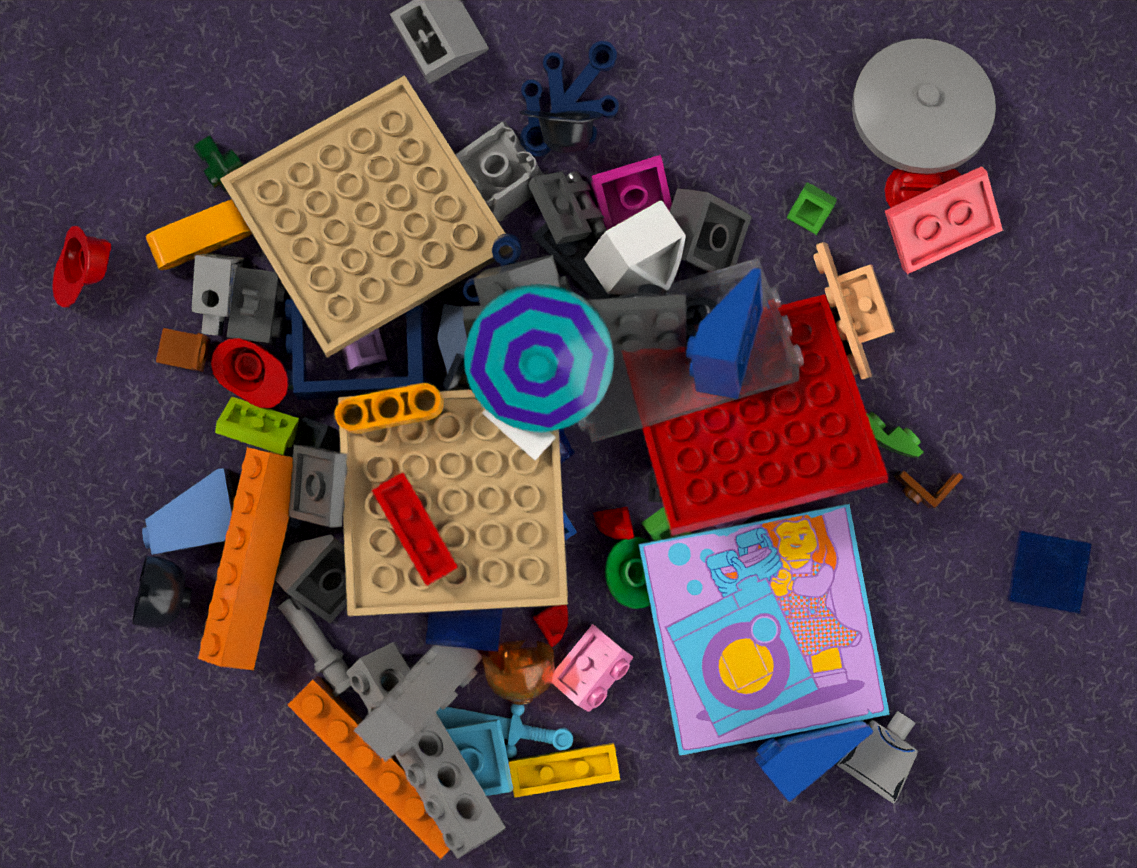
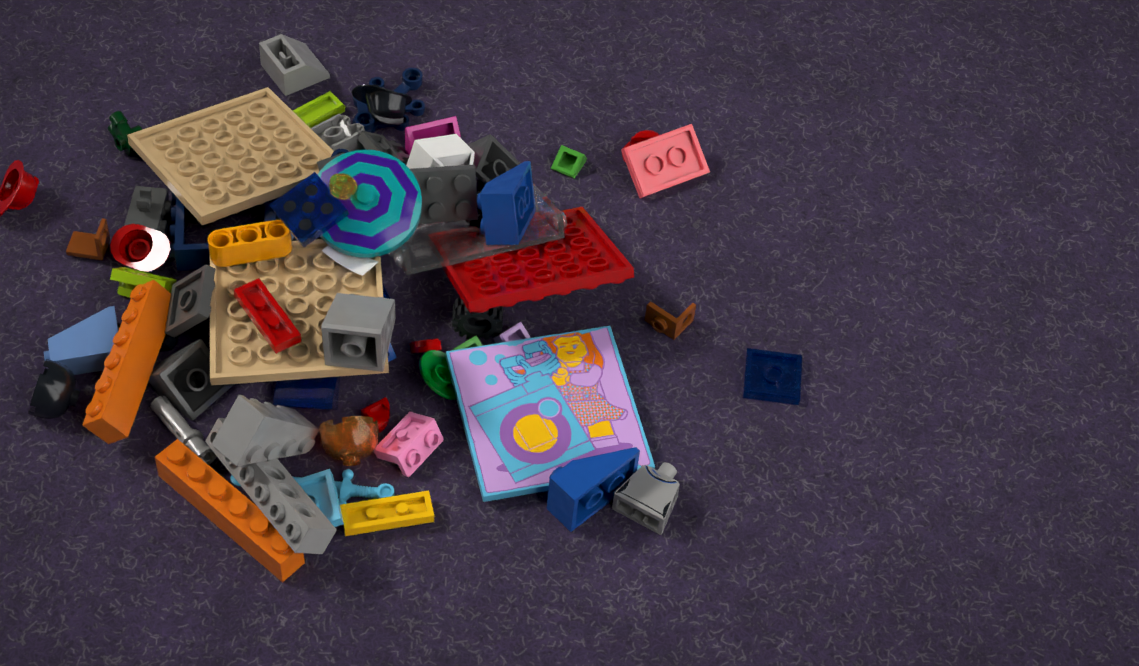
camera: 10 degrees left, 35 degrees down
(197, 235) = (107, 175): light orange beam -> none
(213, 274) = (116, 195): light grey torso -> none
(465, 381) = (309, 209): none -> clear blue tile
(471, 114) = (320, 109): none -> lime tile
(500, 363) = (342, 186): none -> clear yellow plate
(531, 562) = (358, 331): none -> light grey slope
(859, 307) = (606, 207): light nougat bracket -> none
(896, 440) = (639, 291): bright green slope -> none
(923, 106) = (644, 100): light grey dish -> none

